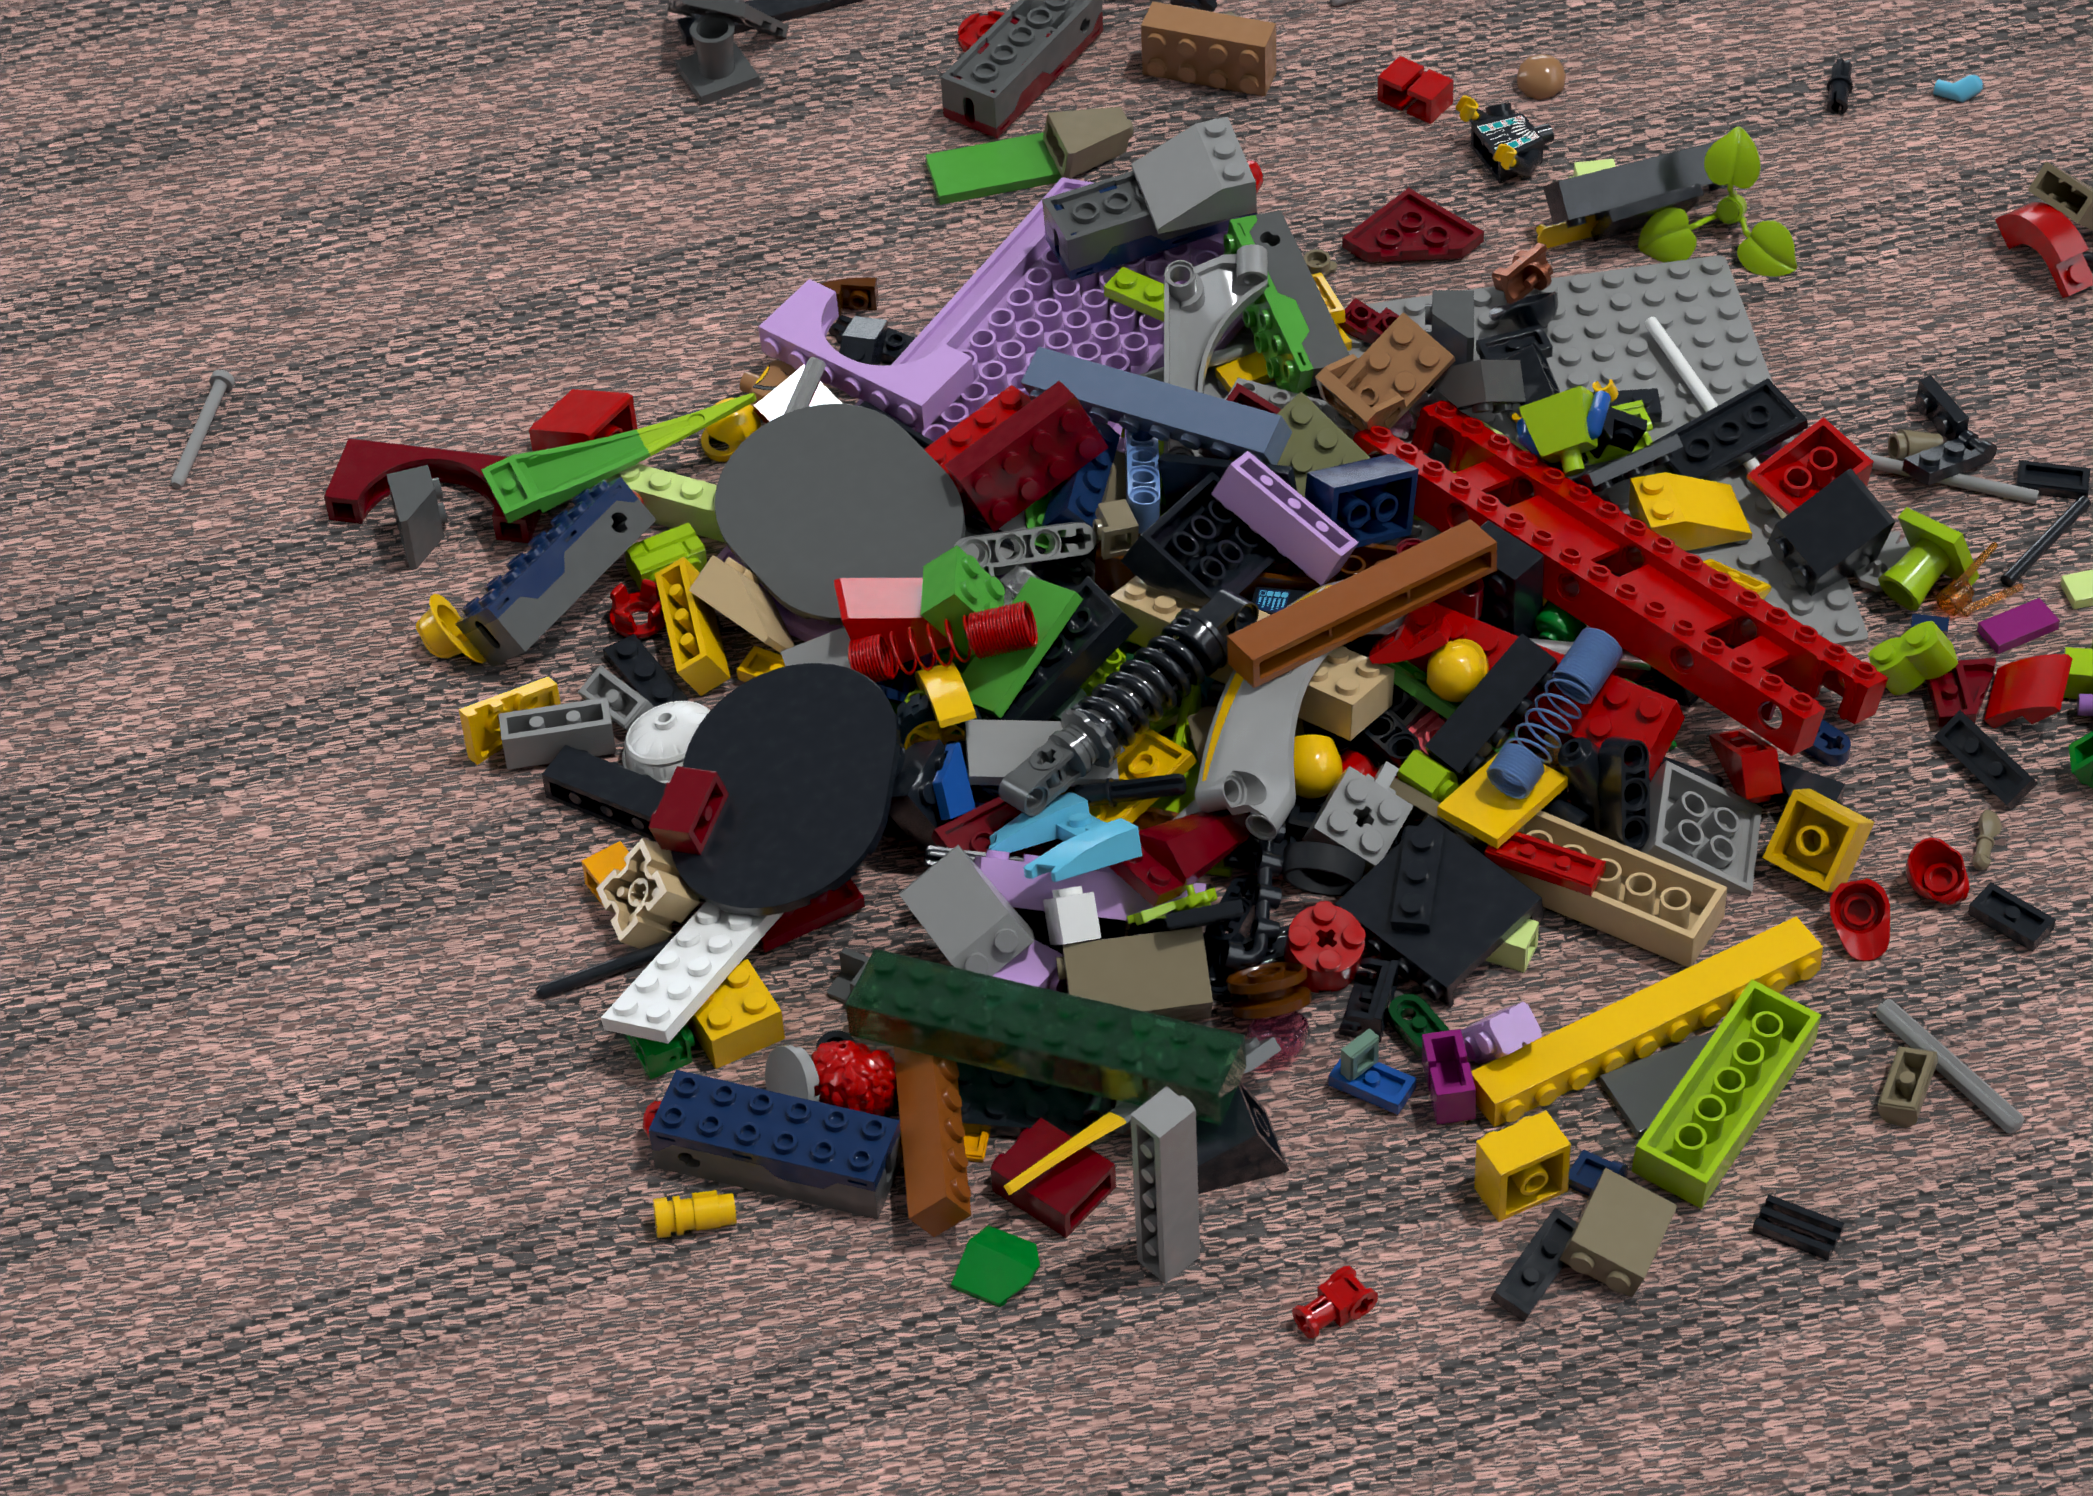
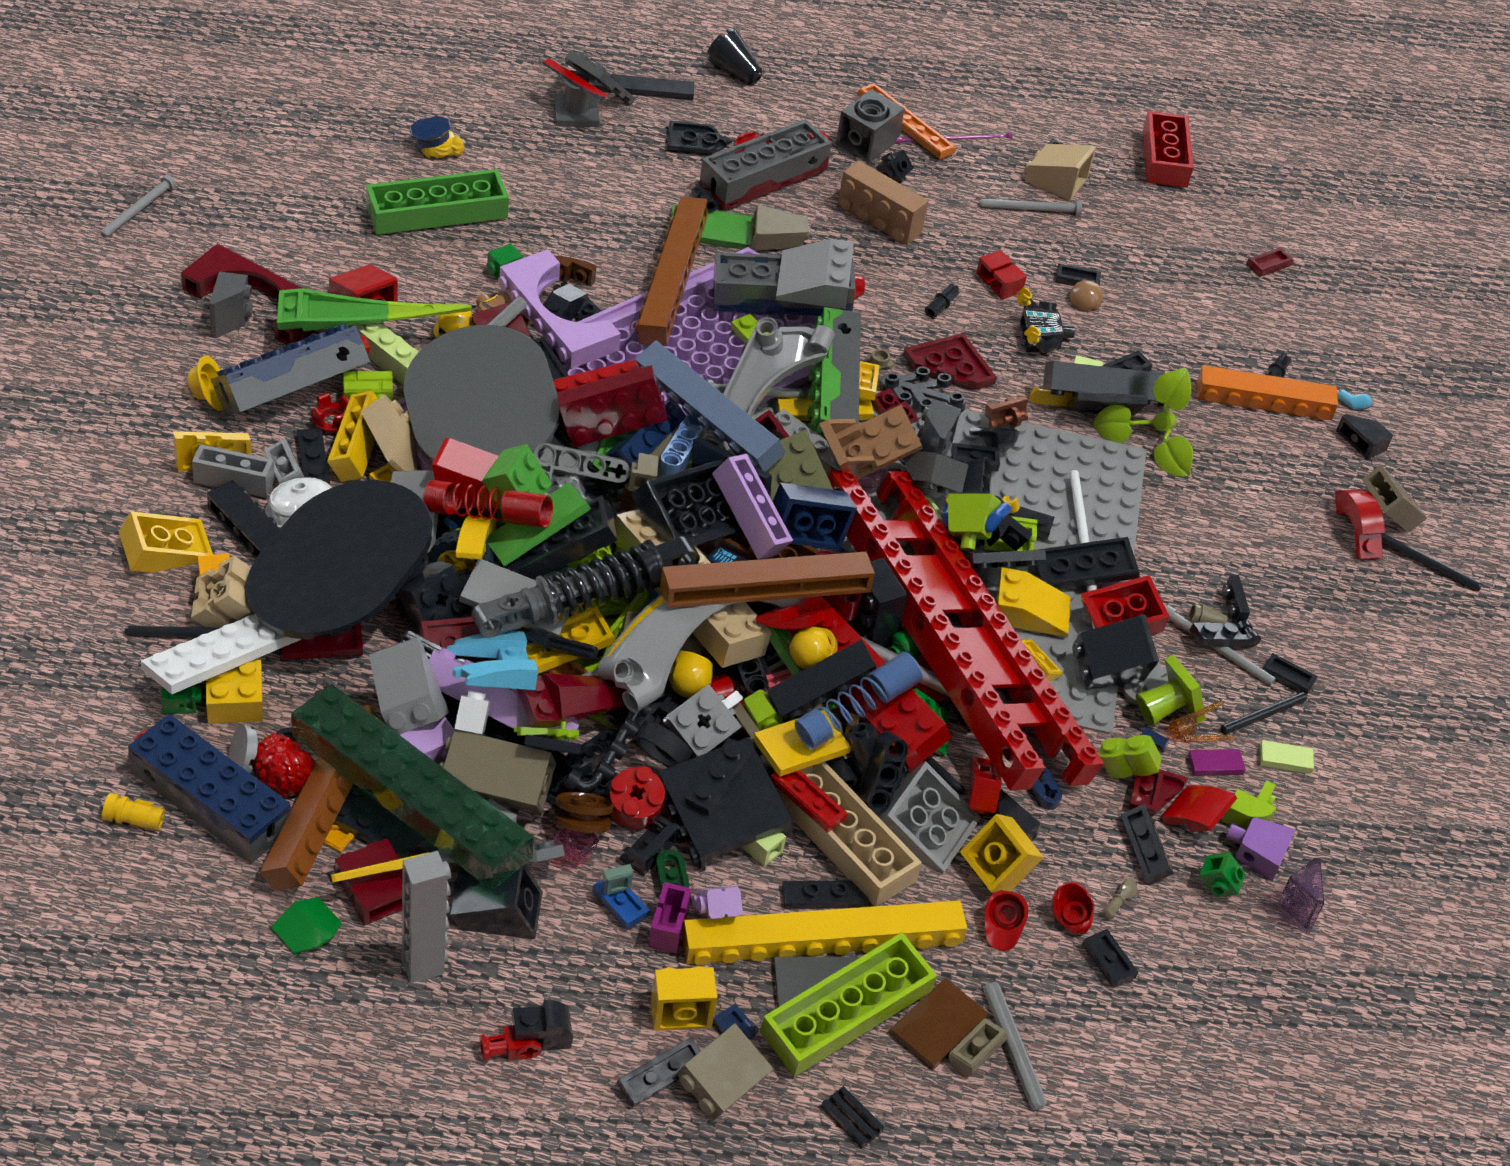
camera: 10 degrees right, 0 degrees up
(518, 861) = (162, 541): none -> yellow slope
(552, 182) = (435, 137): none -> dark blue piece
(608, 270) = (437, 201): none -> bright green brick
(688, 810) = (270, 549): dark red brick -> none
(706, 29) = (574, 79): none -> red sticker
(743, 317) = (500, 257): none -> green brick
(900, 52) = (695, 138): none -> black tile
(953, 785) = (446, 597): blue tile -> none
(964, 131) = (701, 192): none -> black axle
(985, 247) = (672, 271): none -> dark orange brick
(1355, 155) = (942, 301): none -> black axle
(1368, 1262) = (547, 1022): none -> black brick
(1396, 284) = (920, 390): none -> black plant
(1510, 55) = (1071, 275): none -> black tile
(1617, 978) = (822, 895): none -> black plate
(1647, 145) = (1132, 361): none -> black plate
(1843, 1076) = (938, 1023): none -> reddish brown tile
(1845, 120) = (1267, 392): none -> orange brick
(1995, 130) = (1364, 435): none -> black slope

